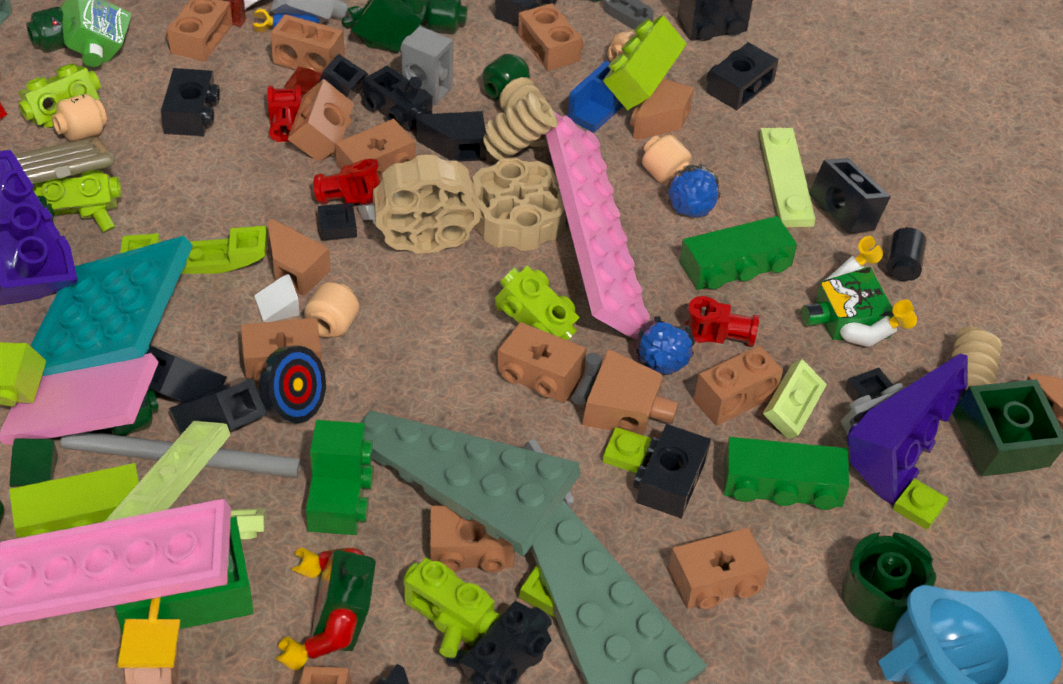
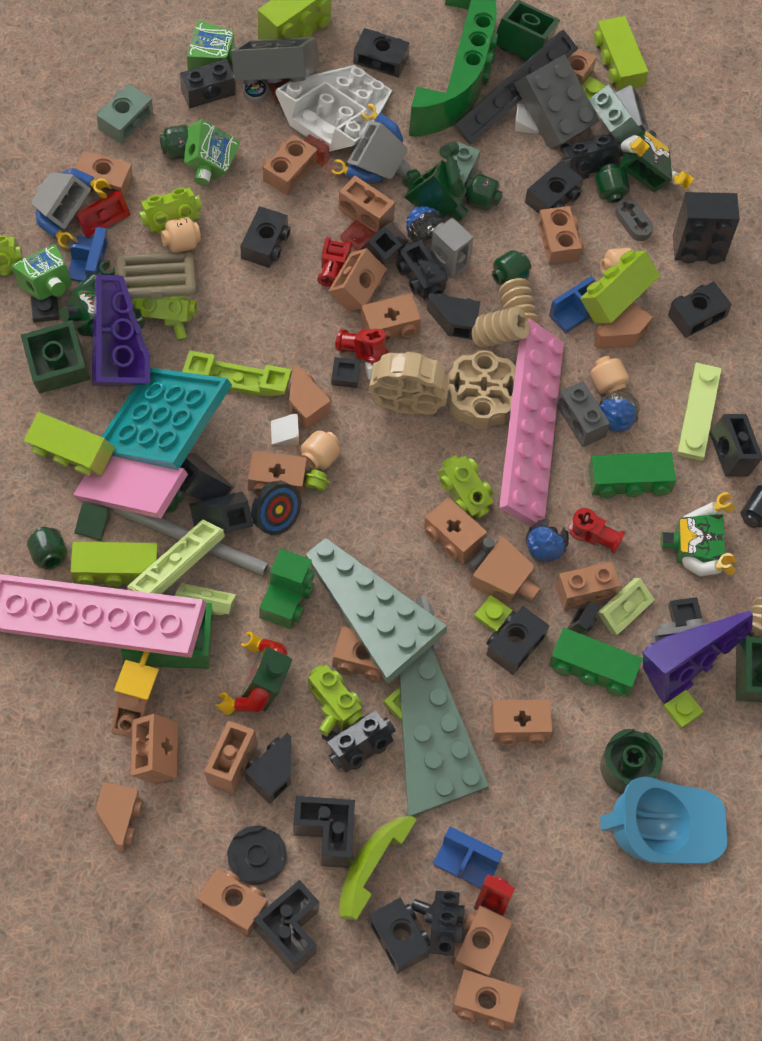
camera: 15 degrees right, 15 degrees up
(337, 346) = (316, 479): none -> lime plate
(383, 49) = (422, 223): none -> clear smoke piece
(652, 202) = (583, 414): none -> dark grey brick
(750, 421) = (584, 618): none -> black plate

